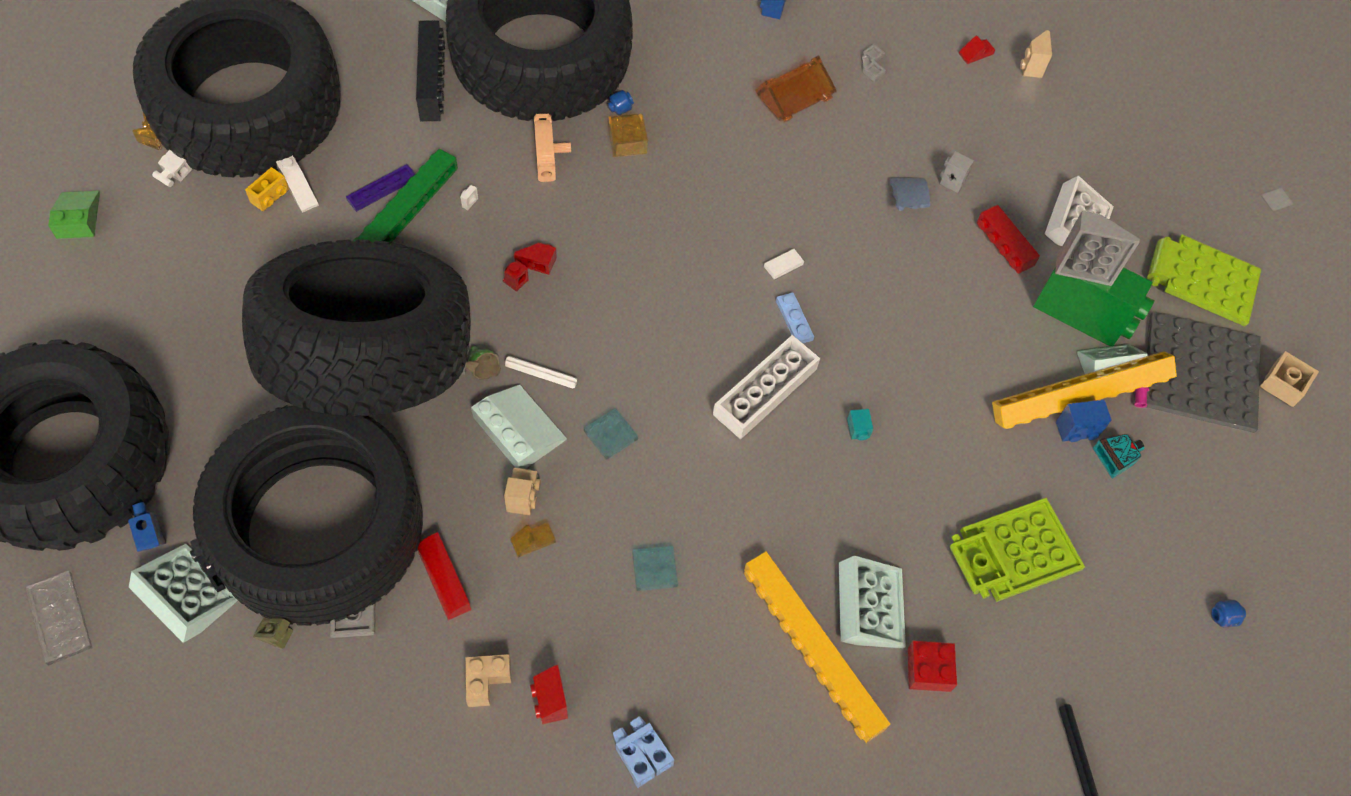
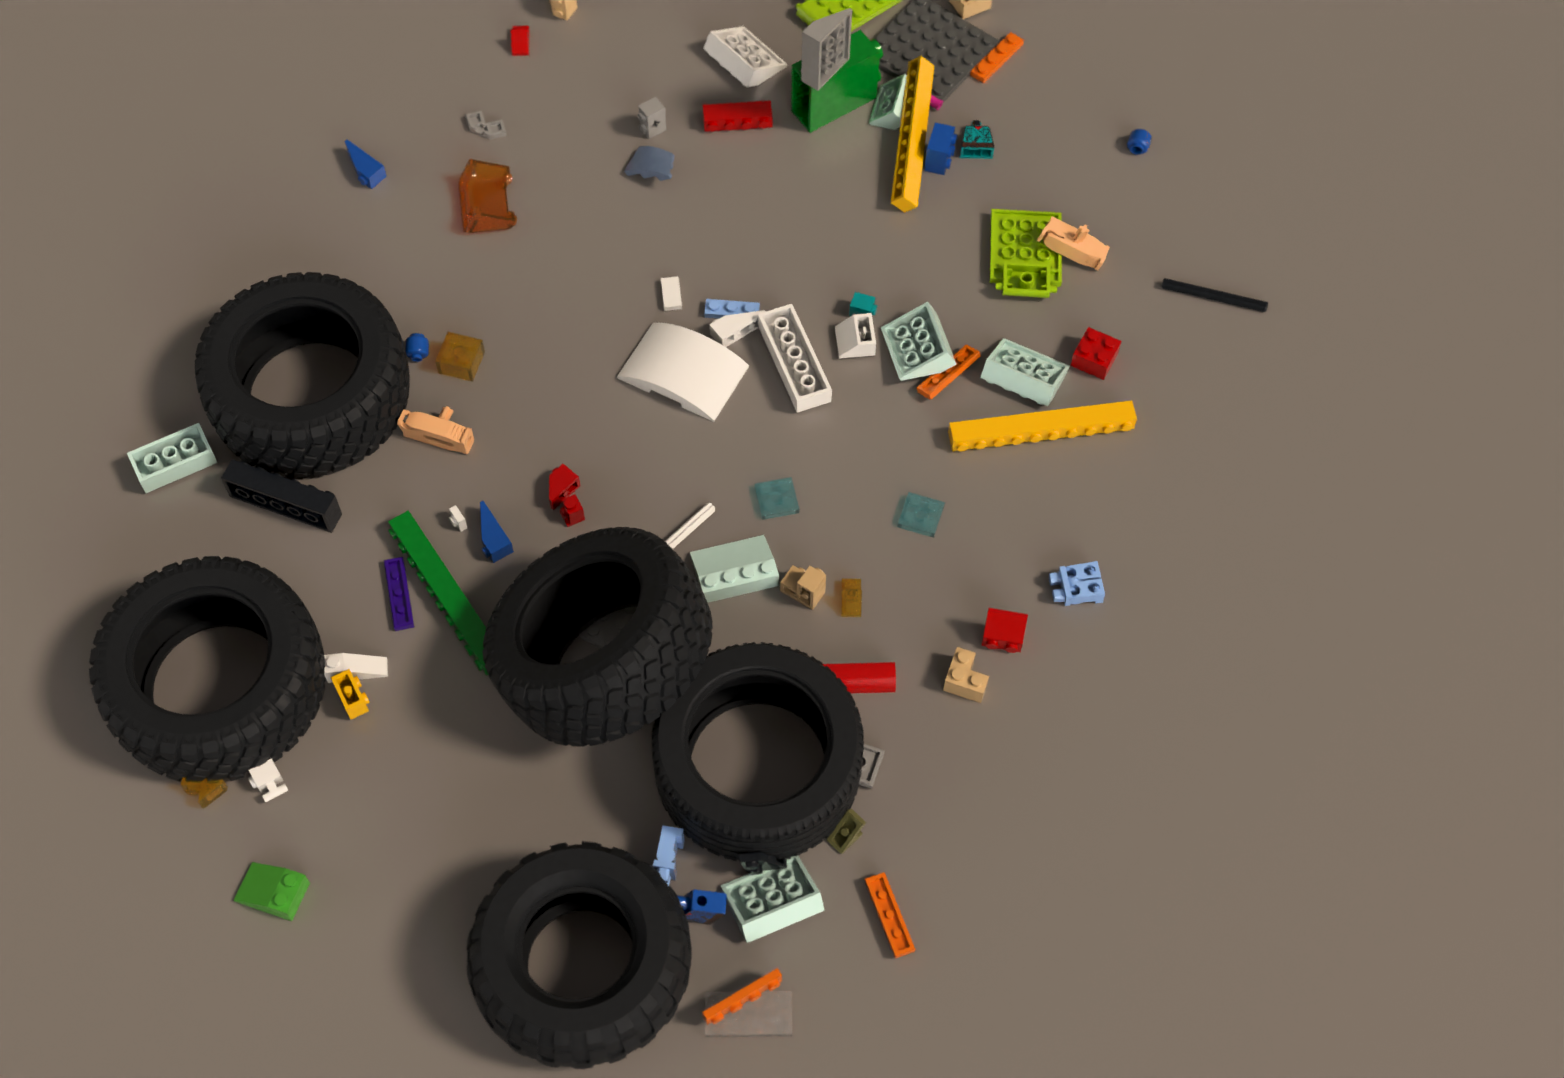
camera: 60 degrees left, 0 degrees up
(70, 608) = (735, 1001): none -> orange plate
(181, 484) = (670, 840): none -> light blue hips
(197, 706) = (889, 915): none -> orange plate
(464, 227) = (494, 539): none -> blue slope
(708, 307) = (685, 368): none -> white slope
(772, 324) = (734, 327): none -> white slope
(822, 432) = (856, 336): none -> white slope
(830, 530) = (937, 382): none -> orange plate
(844, 489) = (918, 343): none -> light aqua slope
(1051, 591) = (1074, 243): none -> light nougat piece
(1237, 435) = (996, 57): none -> orange plate

